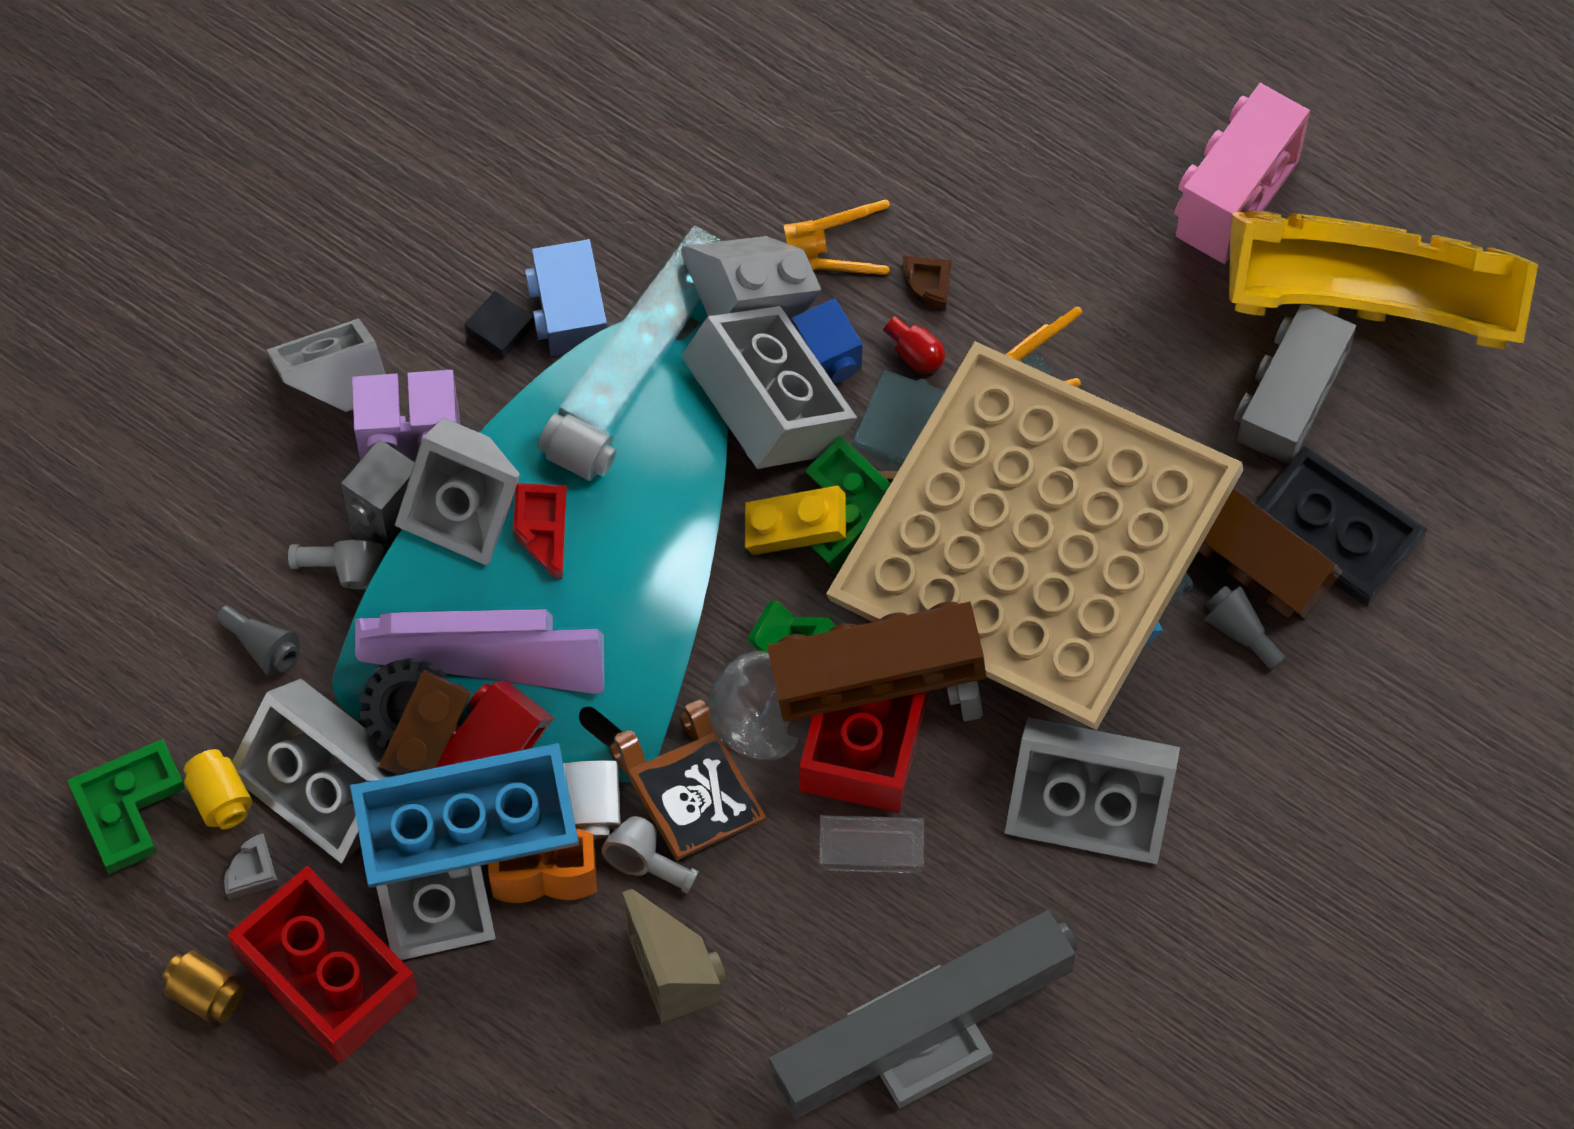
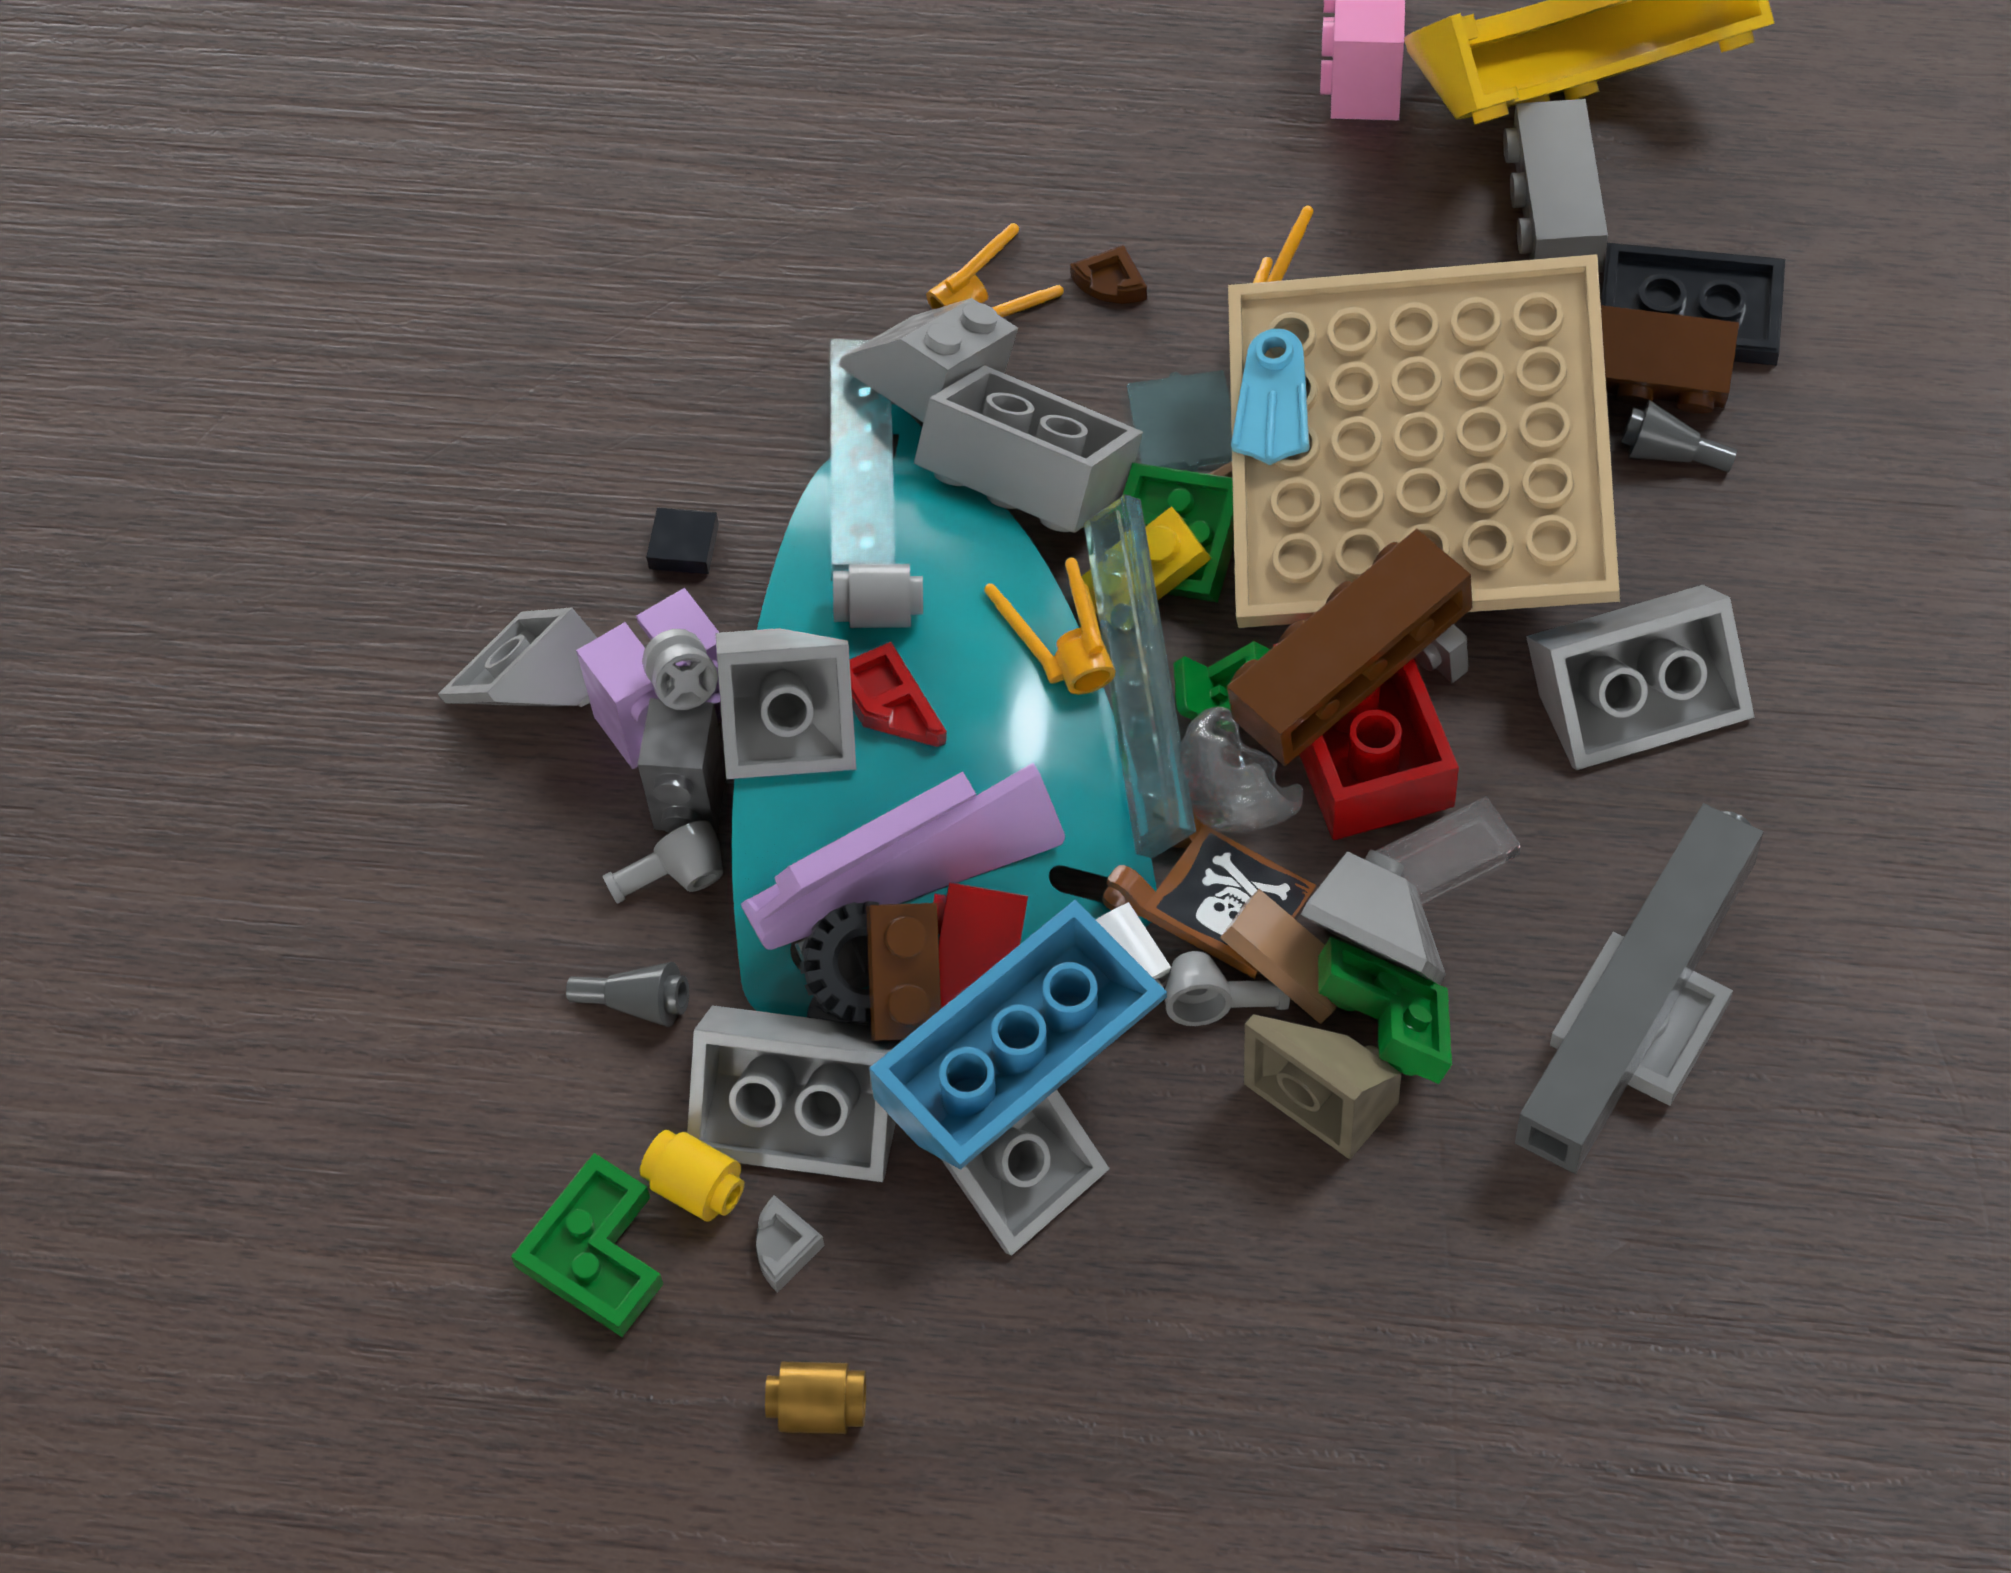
camera: 25 degrees left, 5 degrees down
(323, 964) = (944, 1294): red brick -> none
(403, 429) = (674, 685): none -> light grey wheel
(556, 873) = (1134, 1062): orange brick -> none
(568, 295) = (742, 473): light blue brick -> none
(695, 568) = (1081, 652): none -> light orange plant
(705, 858) = (1280, 951): none -> medium nougat tile
(731, 599) = (1142, 682): none -> clear light blue tile
(758, 932) = (1408, 1007): none -> green plate
(779, 866) = (1378, 912): none -> light grey slope
(831, 339) = (1058, 370): blue brick -> none
(916, 346) = (1146, 344): red cylinder -> none
(949, 446) = (1272, 400): none -> medium azure piece

